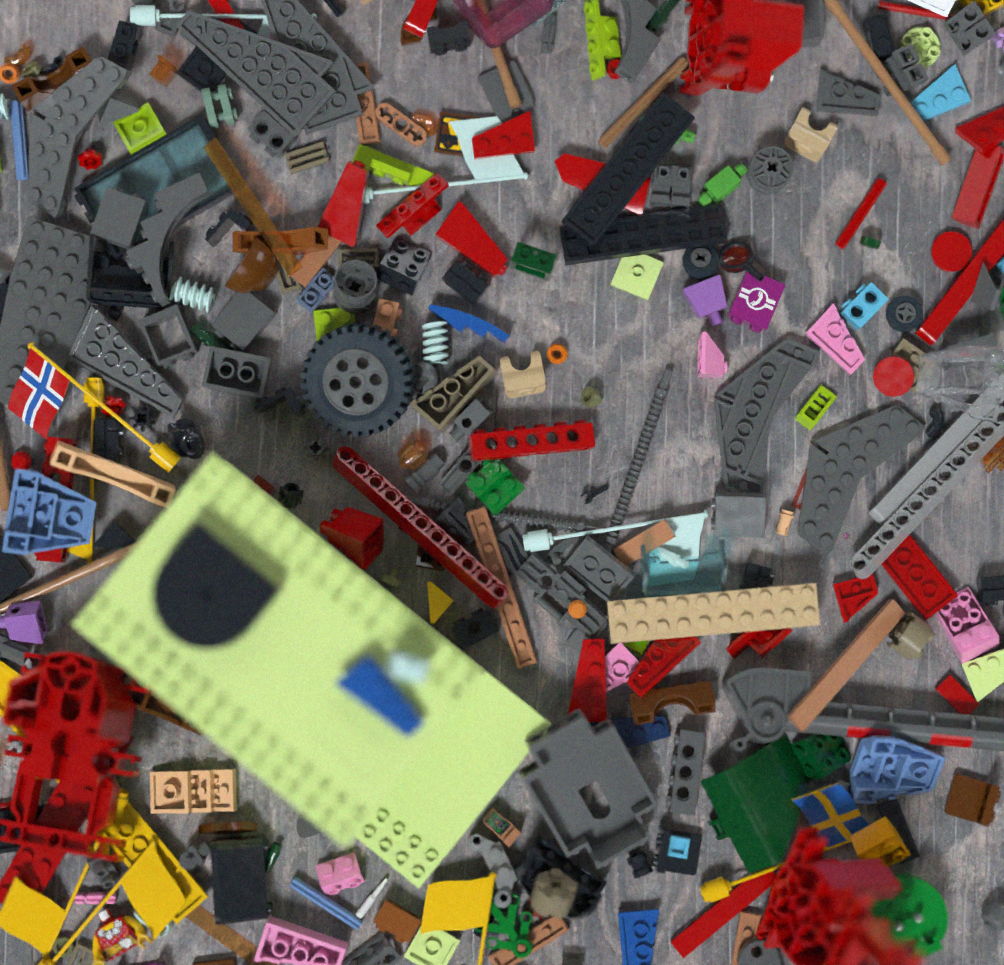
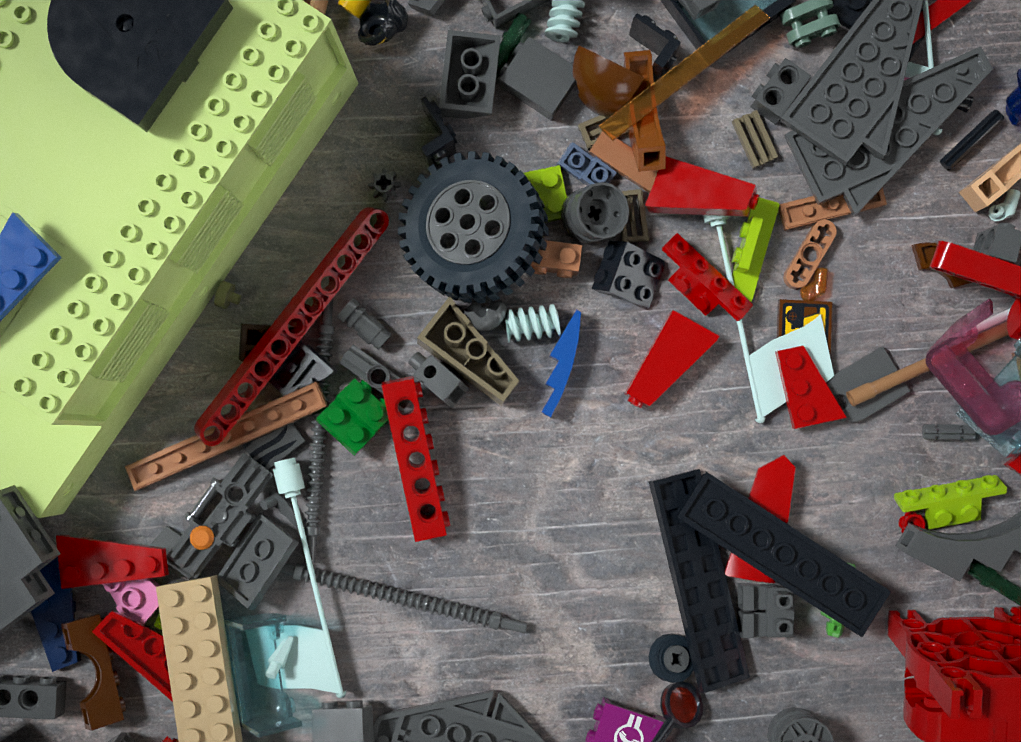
camera: 85 degrees right, 0 degrees up
(264, 484) = (333, 125): clear red tile -> none
(290, 495) = (321, 158): black gear -> none
(355, 534) = (275, 243): red hips -> none
(407, 667) = (40, 313): light aqua torso -> none
(412, 454) = (386, 307): clear orange head -> none
(438, 601) = (202, 357): yellow slope -> none
(449, 39) = (930, 303): black brick -> none
(465, 282) = (614, 355): black brick -> none
(465, 638) = (156, 399): black brick -> none
(523, 382) = (492, 441): tan piece -> none
(532, 264) = (646, 438): dark green window -> none
(557, 347) = (533, 489): orange plate -> none
(591, 397) = (481, 530): olive tile -> none
(594, 493) = (357, 544): black hand -> none
(637, 275) = (645, 576): yellowish green plate -> none
(643, 102) = (872, 564): medium nougat axle -> none
(651, 538) = (300, 620): nougat tile -> none
(707, 299) = (622, 671): medium lavender torso -> none
(710, 358) = (545, 681): bright pink slope -> none
(722, 184) = (775, 678): bright green piece -> none

